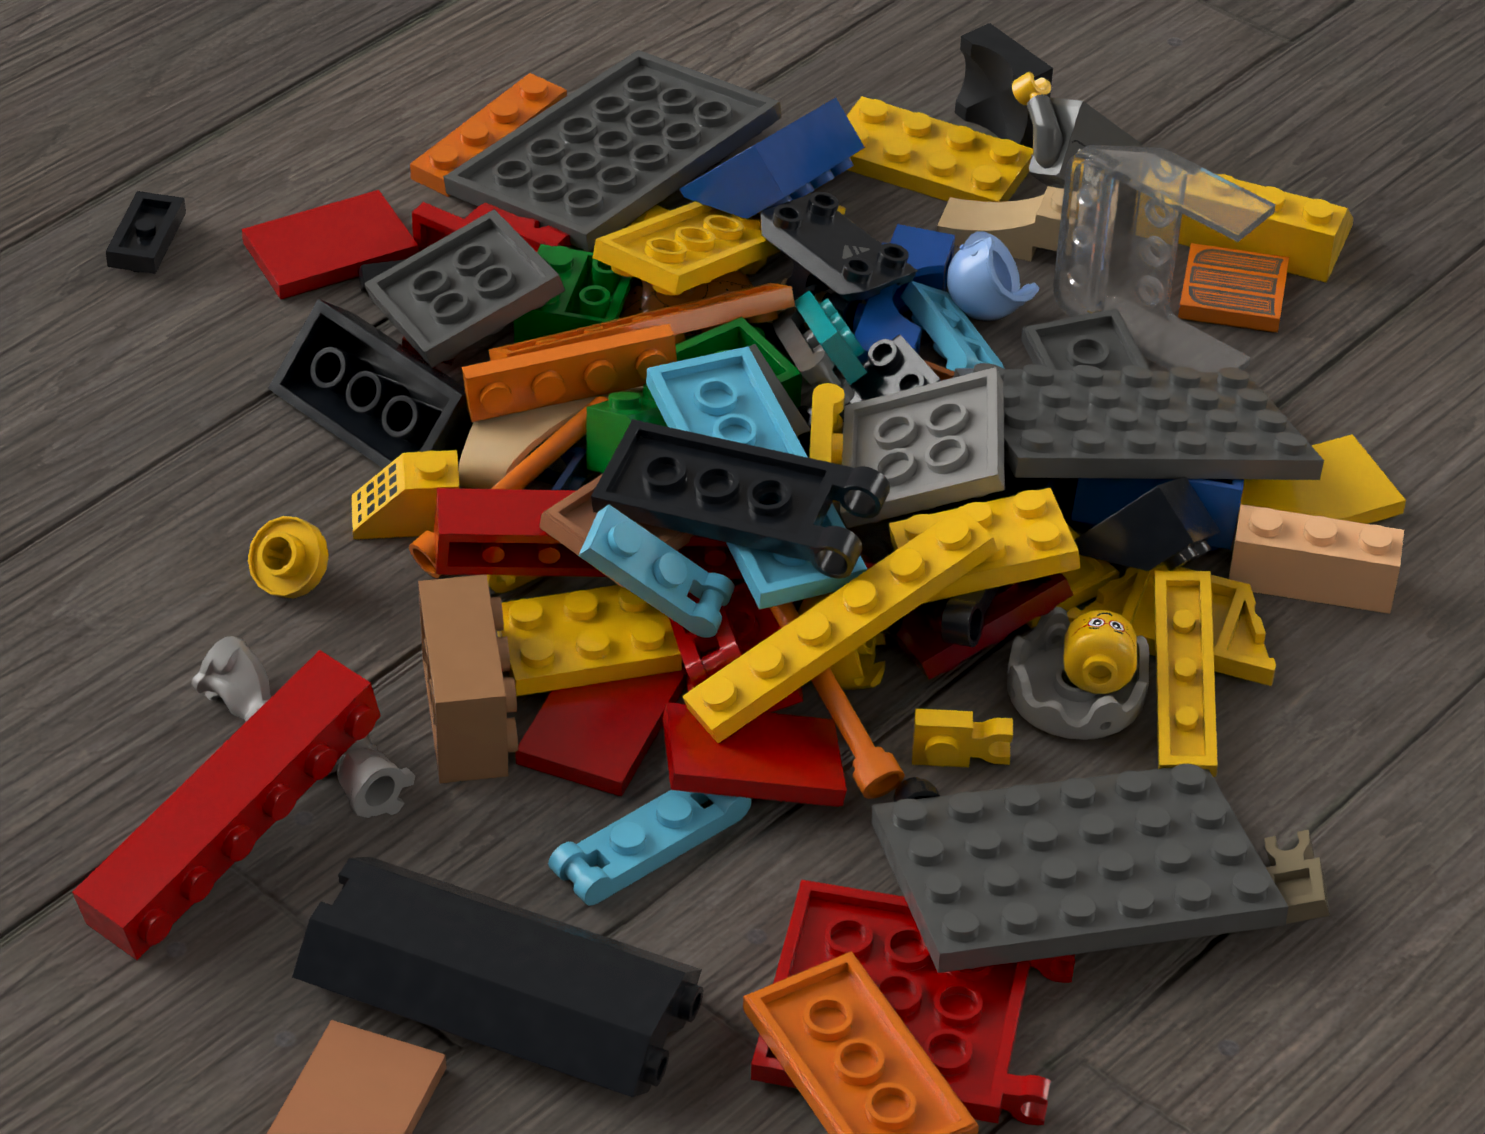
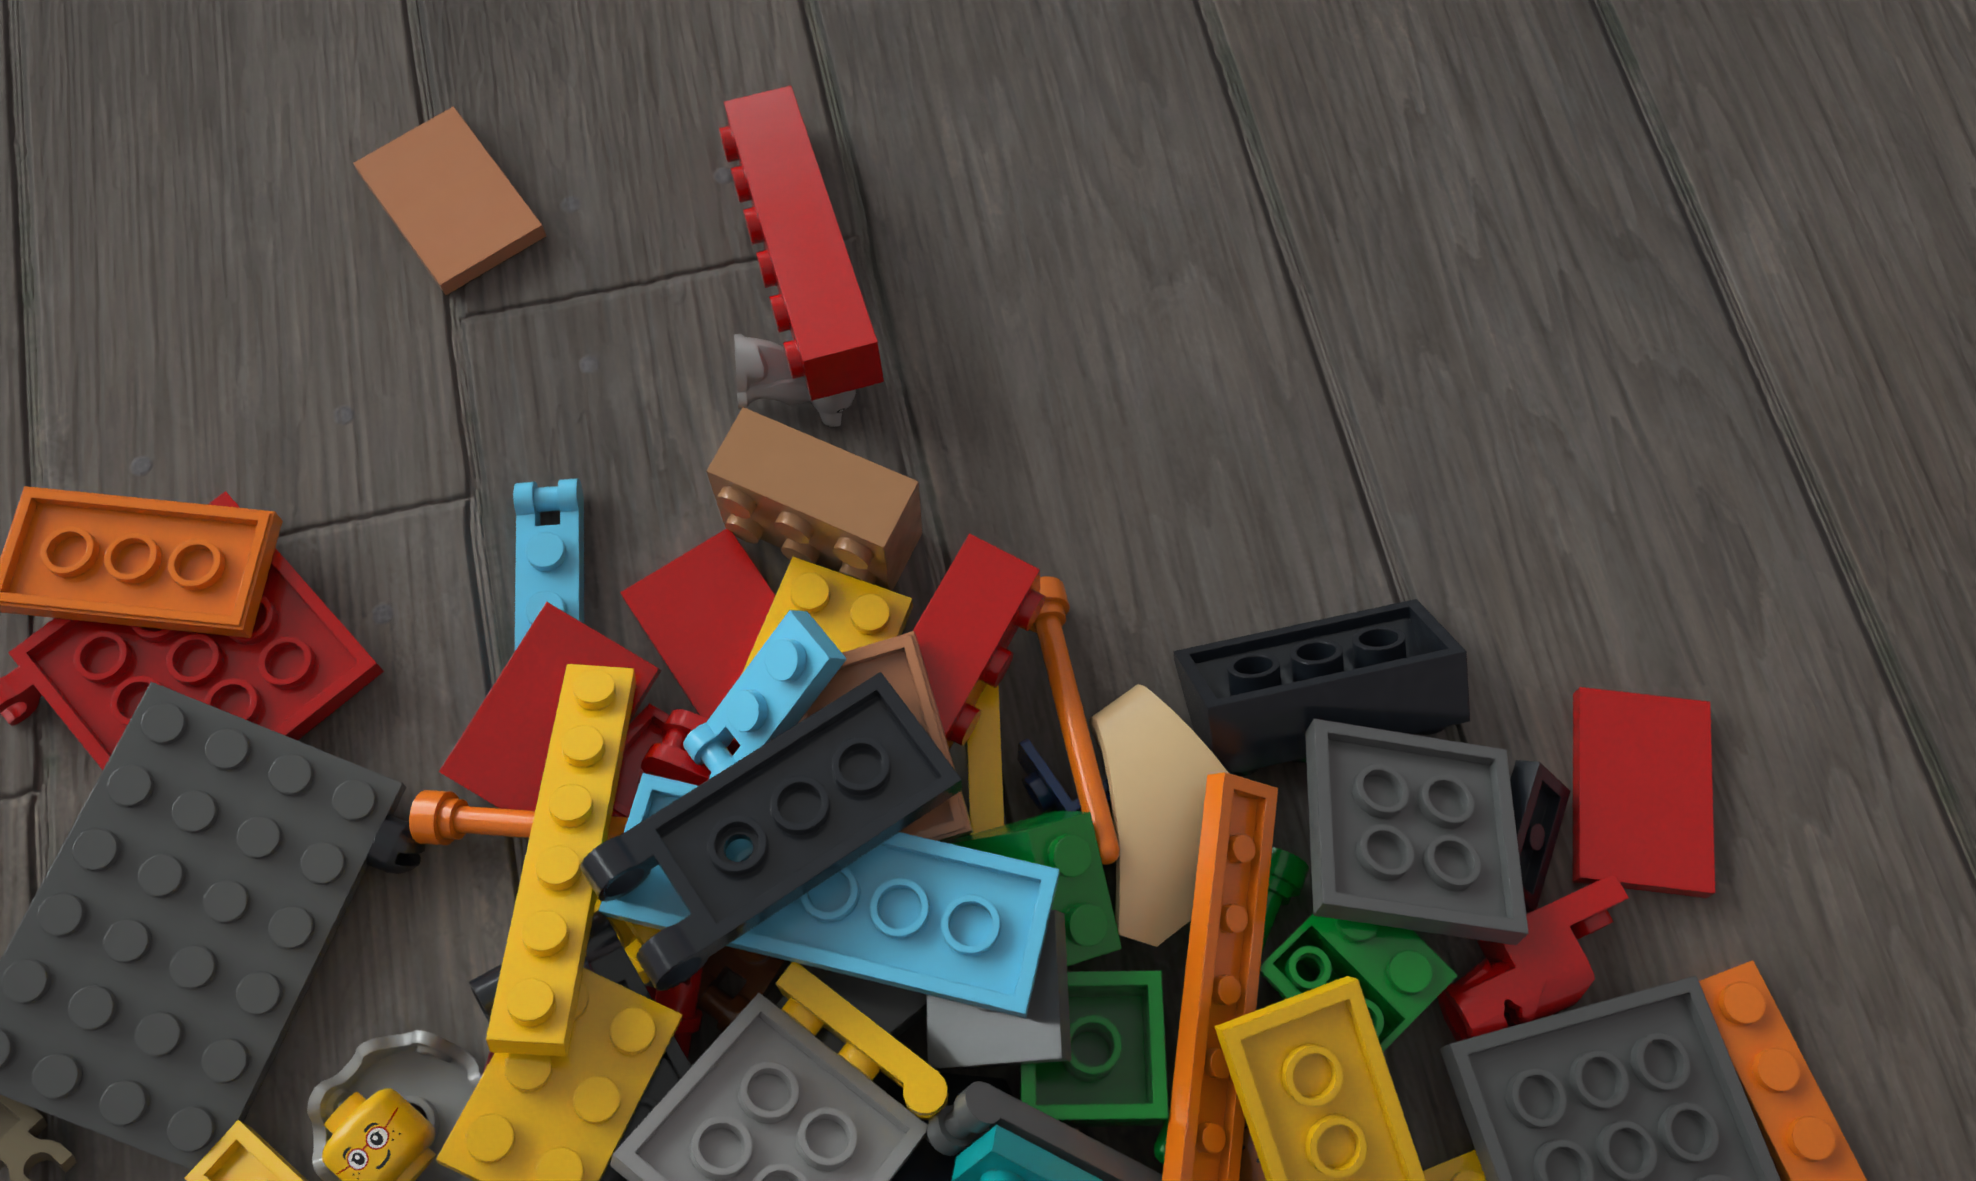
camera: 125 degrees right, 25 degrees up
(145, 232) = (1755, 601): black plate -> none
(235, 676) = (959, 338): light grey animal -> none
(288, 557) = (1113, 463): yellow plate -> none
(403, 495) = (1132, 625): yellow slope -> none
(499, 975) = (467, 357): black panel -> none
(566, 372) = (1147, 856): orange plate -> none
(953, 737) = (432, 930): yellow plate -> none

